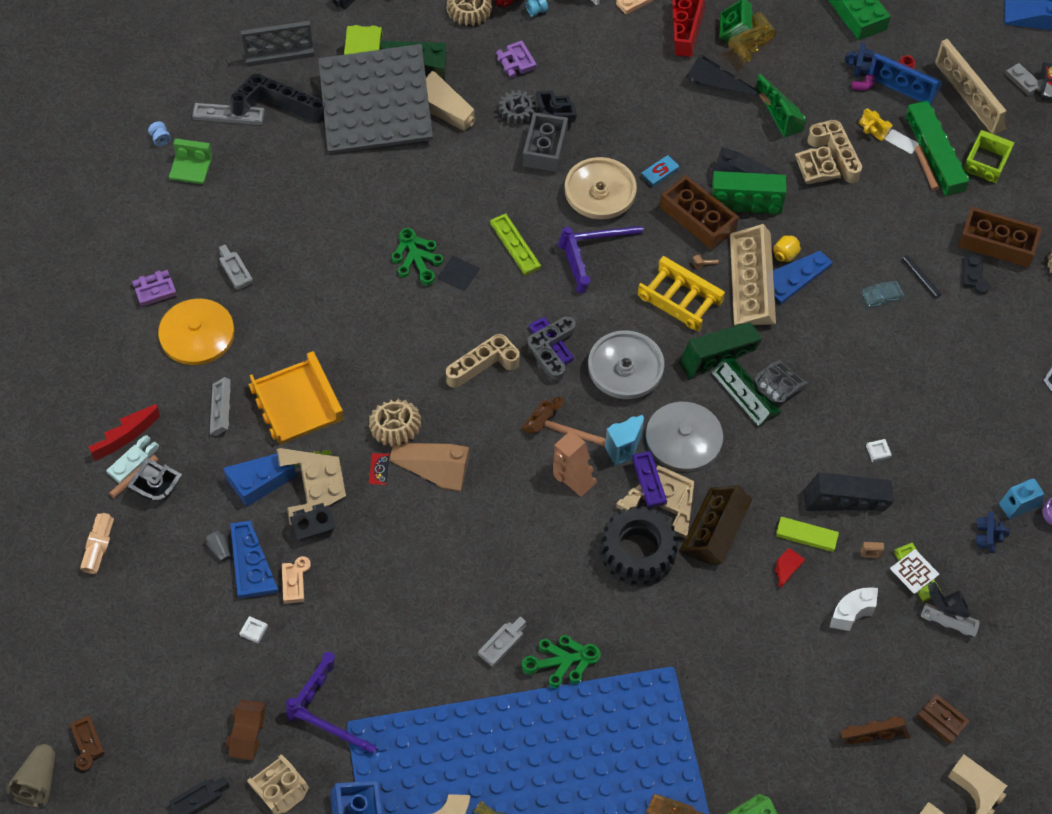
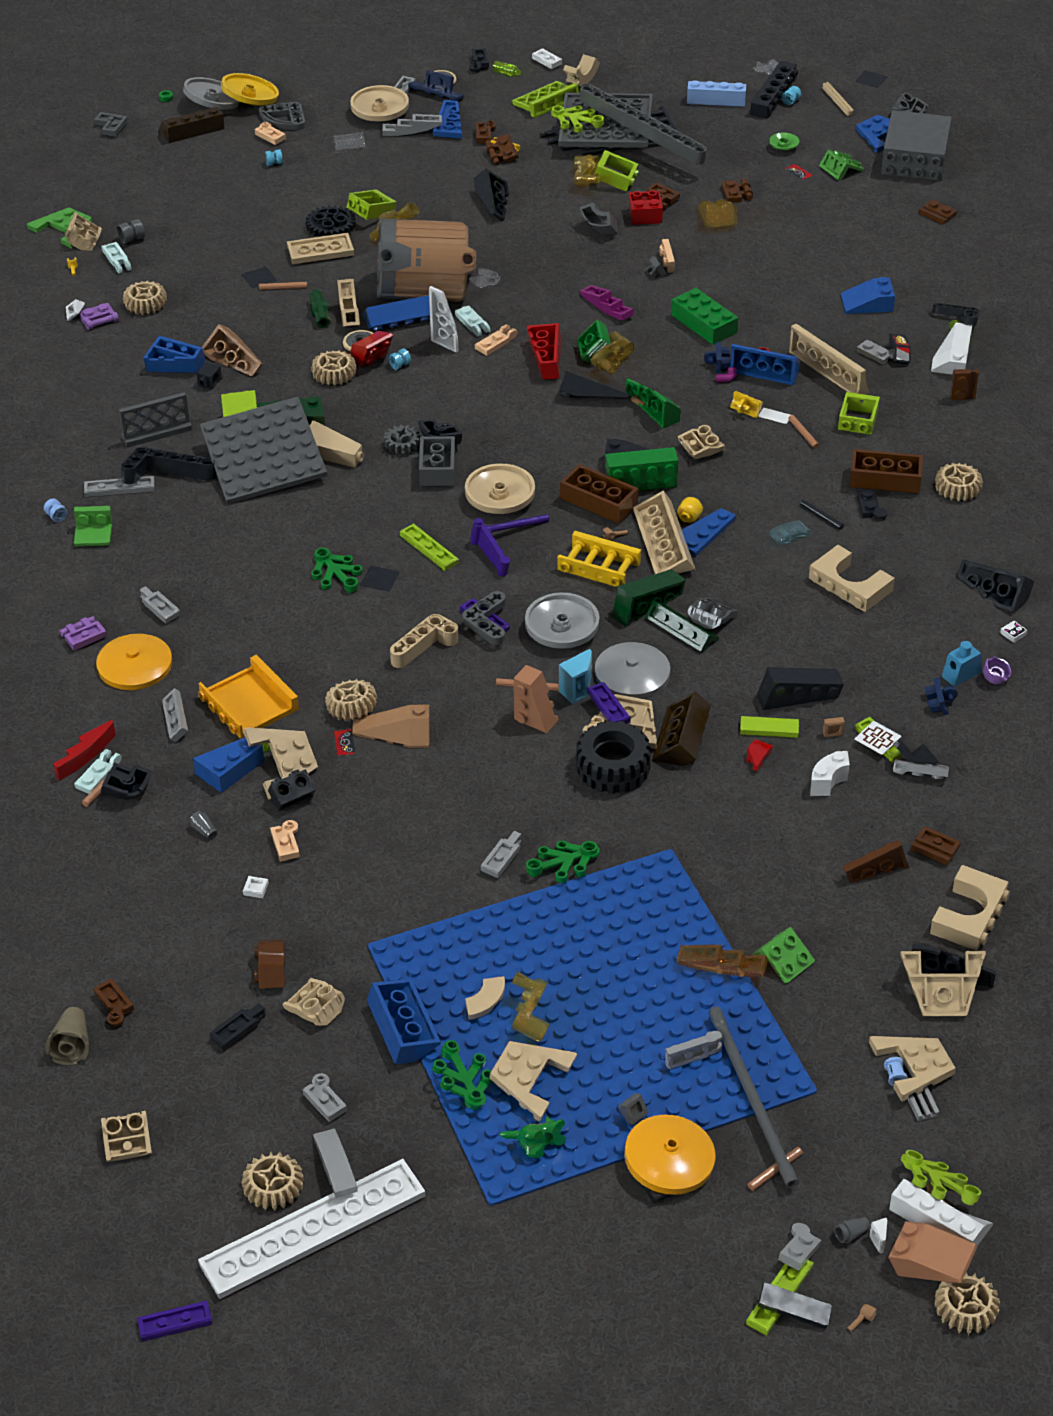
camera: 10 degrees left, 15 degrees down
(97, 543) = (81, 842): light nougat piece -> none
(251, 567) = (238, 834): blue wing -> none
(296, 706) = (317, 932): dark purple piece -> none
(521, 59) = (395, 403): medium lavender plate -> none
(541, 414) = (491, 672): reddish brown hinge -> none
(660, 171) = (552, 470): dark azure tile -> none
(833, 135) = (719, 425): tan beam -> none
(878, 450) = (818, 652): white tile -> none
(937, 148) = (809, 414): green brick -> none
(938, 387) = (860, 594): none -> tan arch

